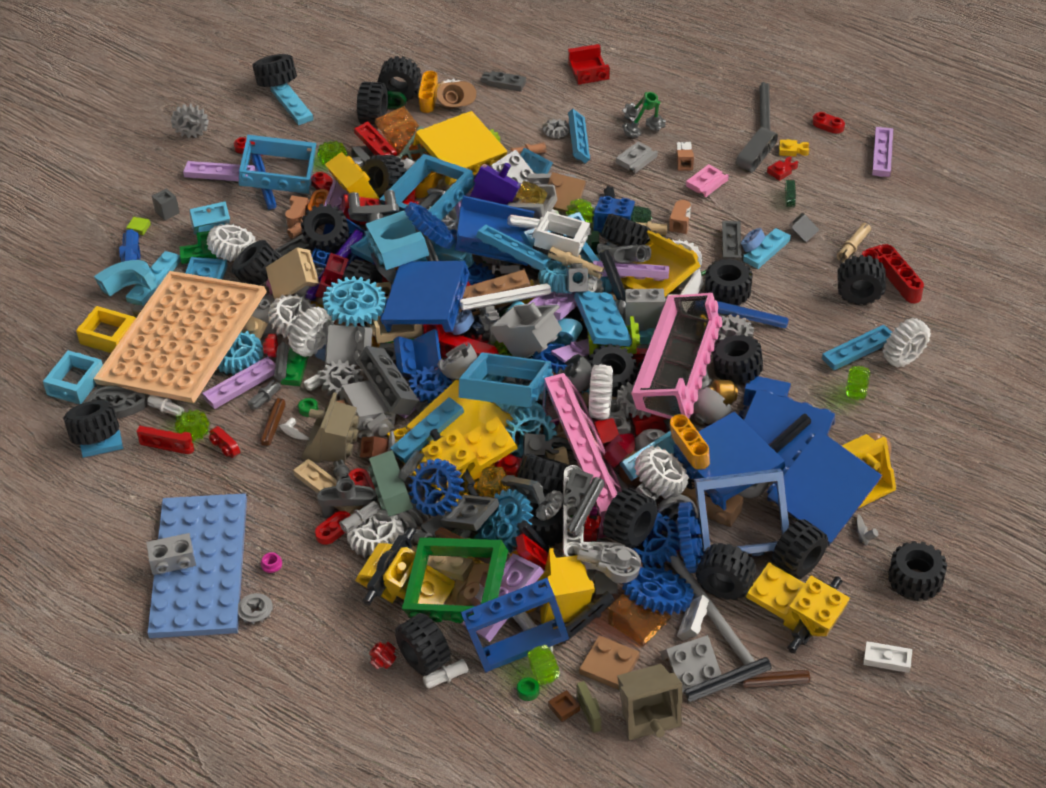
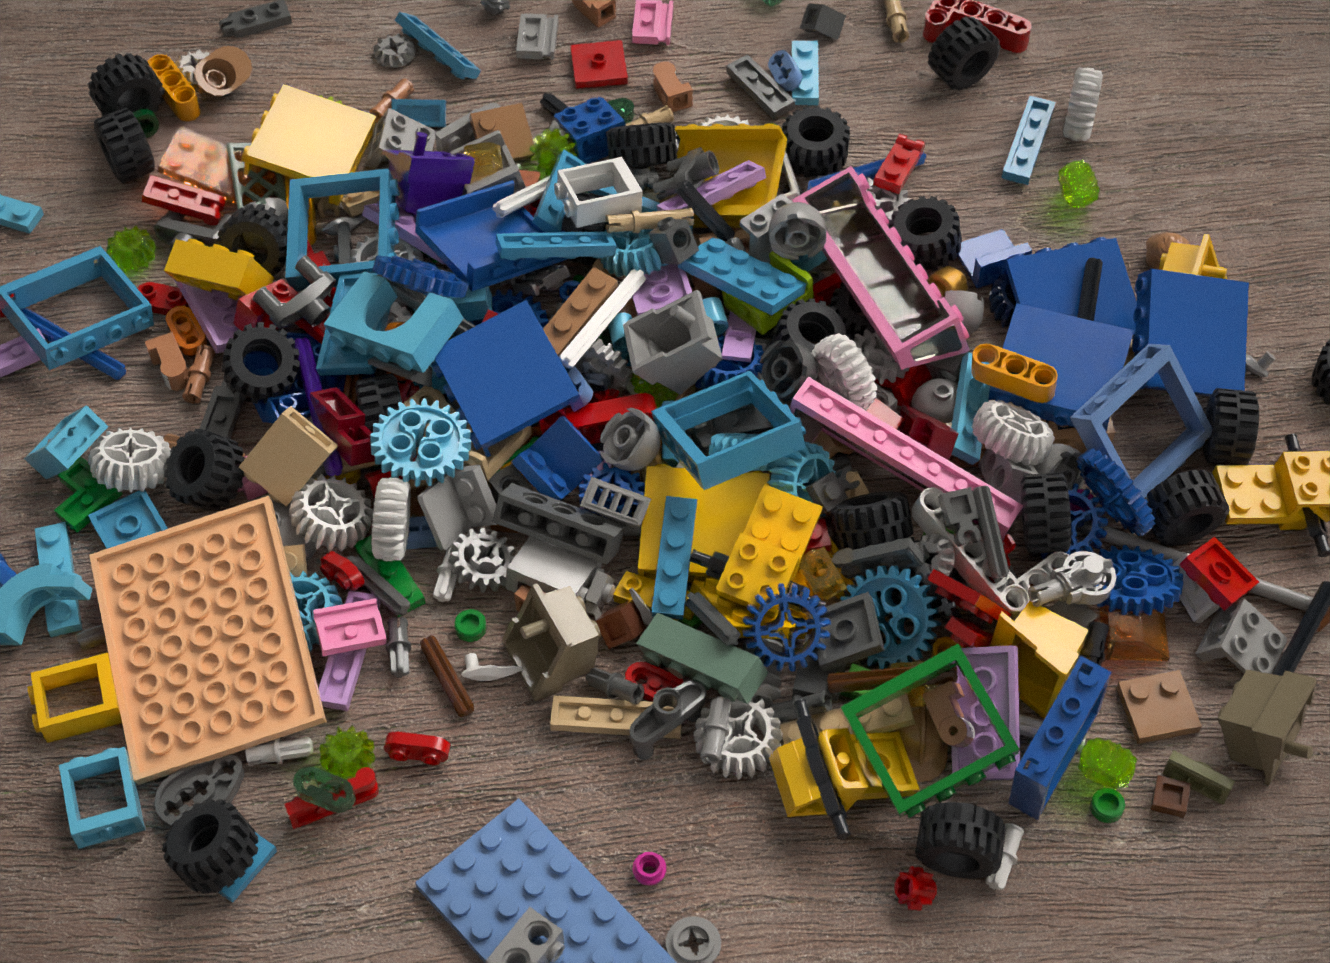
camera: 40 degrees left, 10 degrees up
(164, 427) = (325, 782): none -> clear green beam
(246, 369) = (349, 627): none -> bright pink plate
(330, 529) = (678, 767): red plate -> none
(428, 397) = (642, 501): none -> light grey slope
(545, 532) = (966, 597): none -> red plate
(647, 308) = (797, 231): none -> light grey cylinder
(656, 187) = (599, 64): none -> red plate
(708, 614) = (1218, 573): none -> red plate
(760, 316) = (899, 164): none -> red plate

